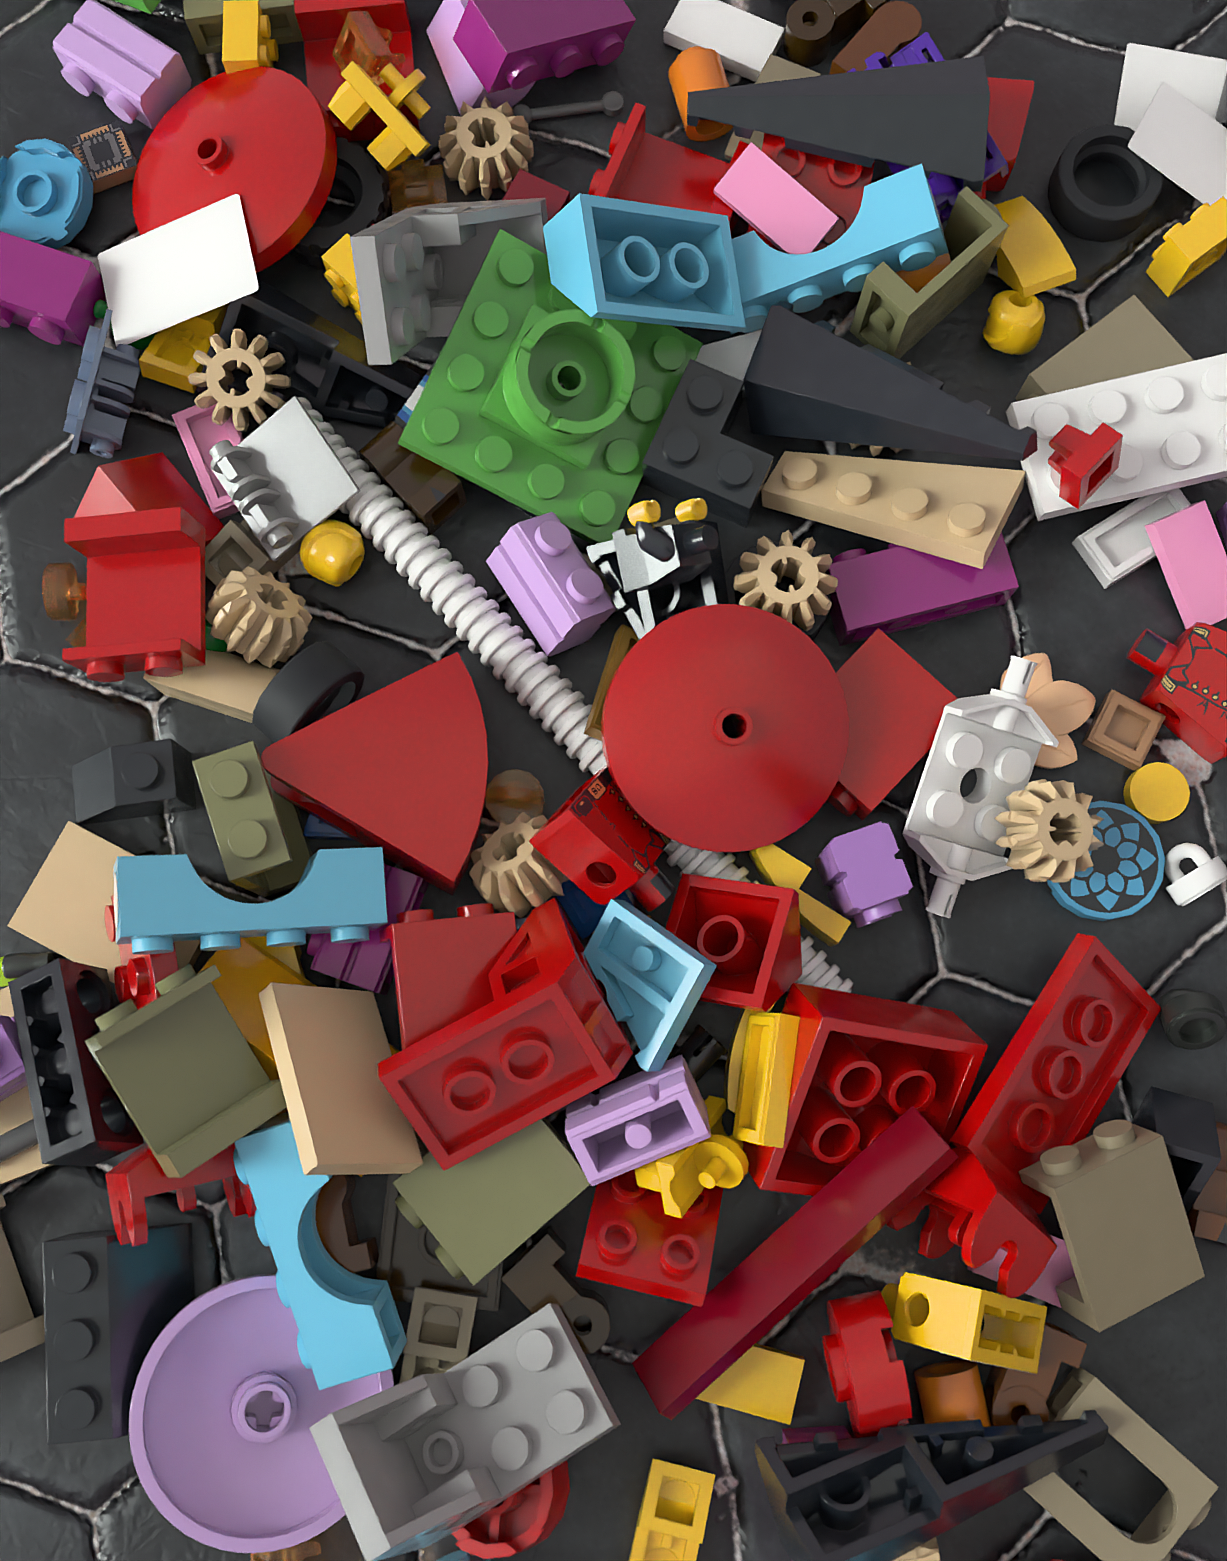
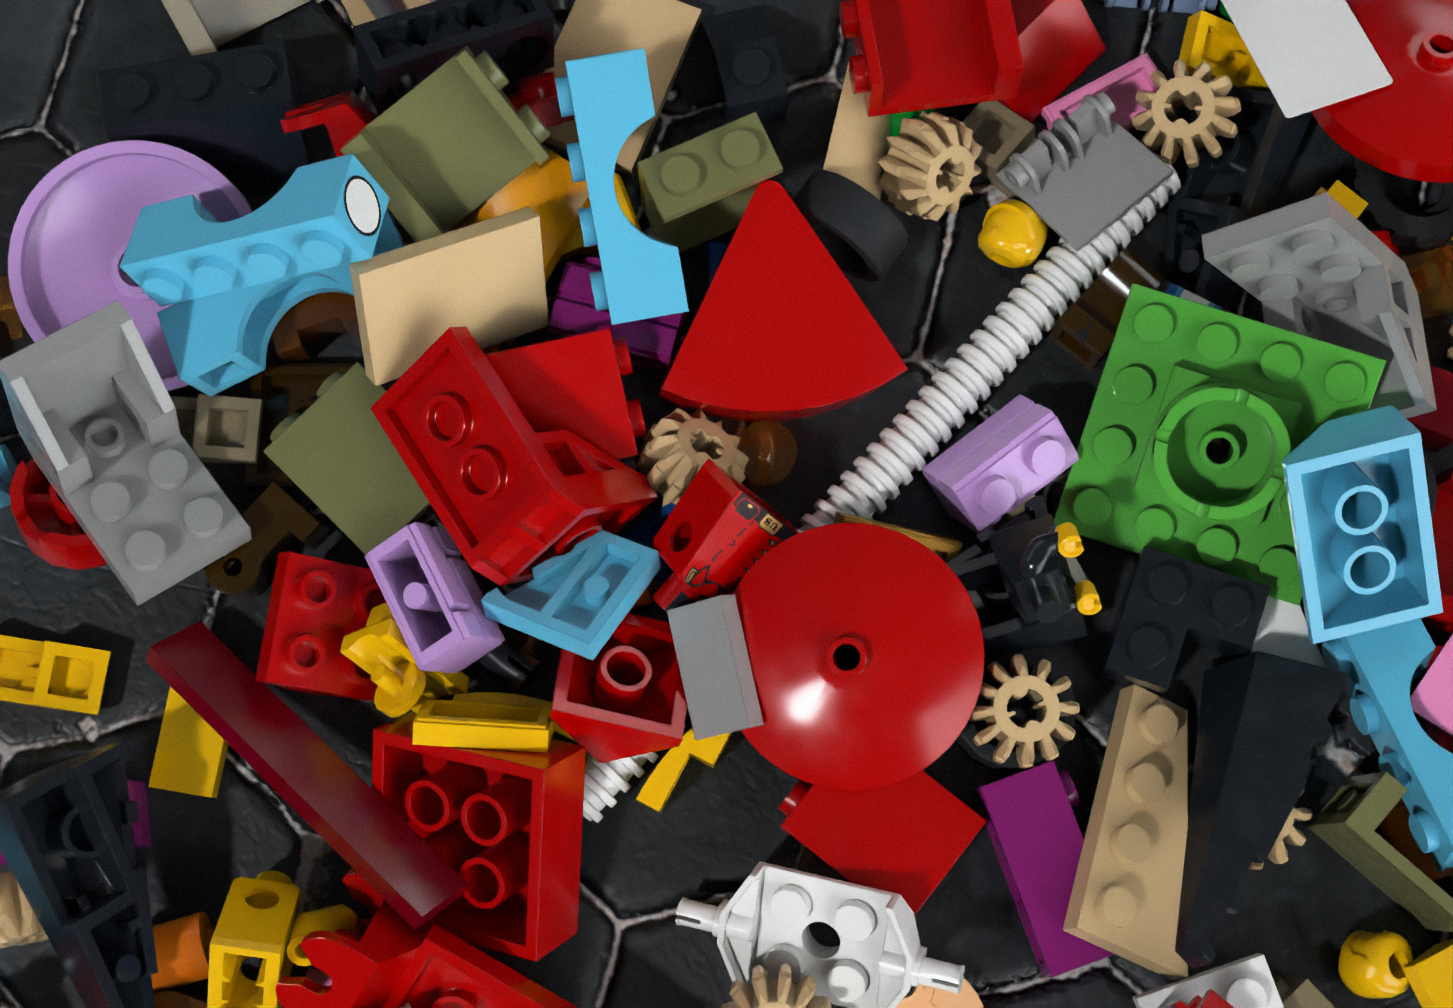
camera: 80 degrees right, 0 degrees up
(253, 1206) = (316, 222): none -> medium azure arch
(727, 853) = (715, 667): none -> light grey tile
(864, 874) = (706, 820): medium lavender brick -> none
(865, 1363) = (208, 852): red piece -> none
(944, 1257) = (322, 919): none -> yellow arm

